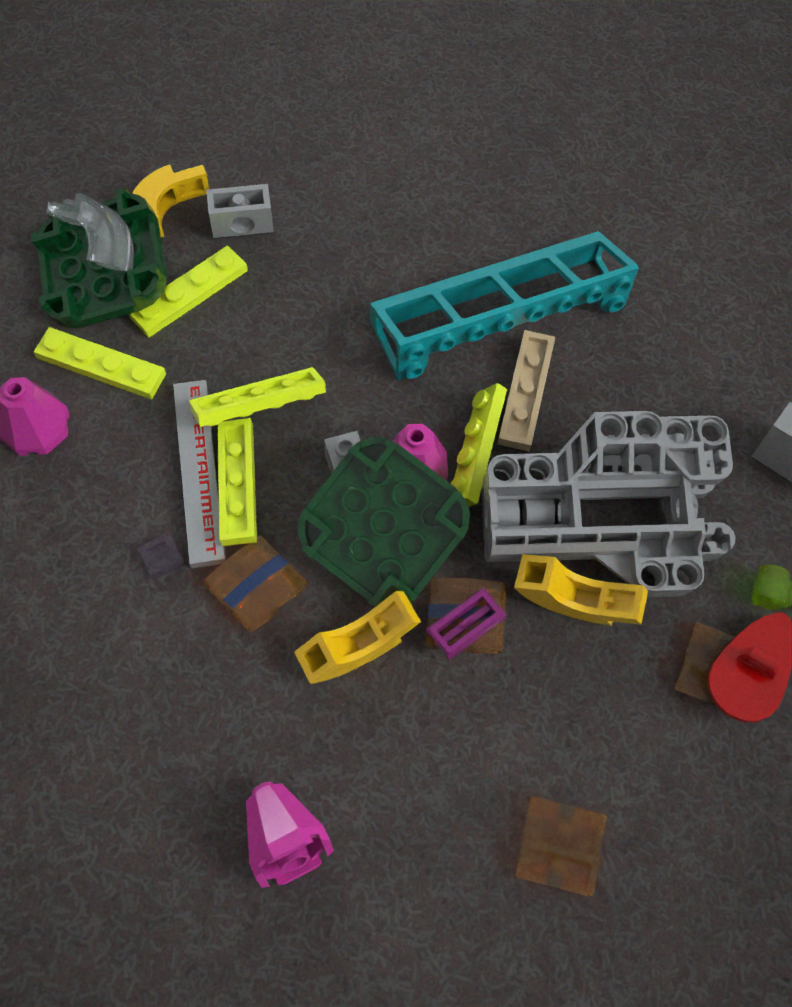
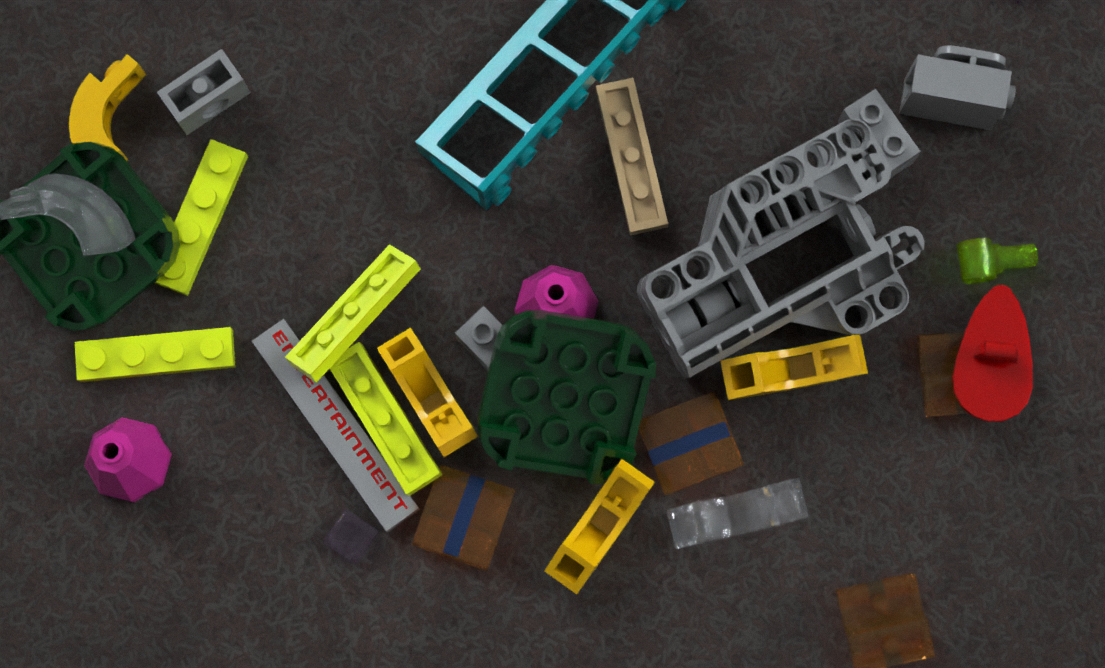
camera: 20 degrees left, 15 degrees up
(279, 474) = (427, 392): none -> yellow arch
(442, 642) = (681, 487): magenta tile -> none
(476, 688) = (737, 514): none -> clear arch
(478, 442) = (612, 250): neon yellow plate -> none
(744, 472) = (887, 129): none -> light grey brick

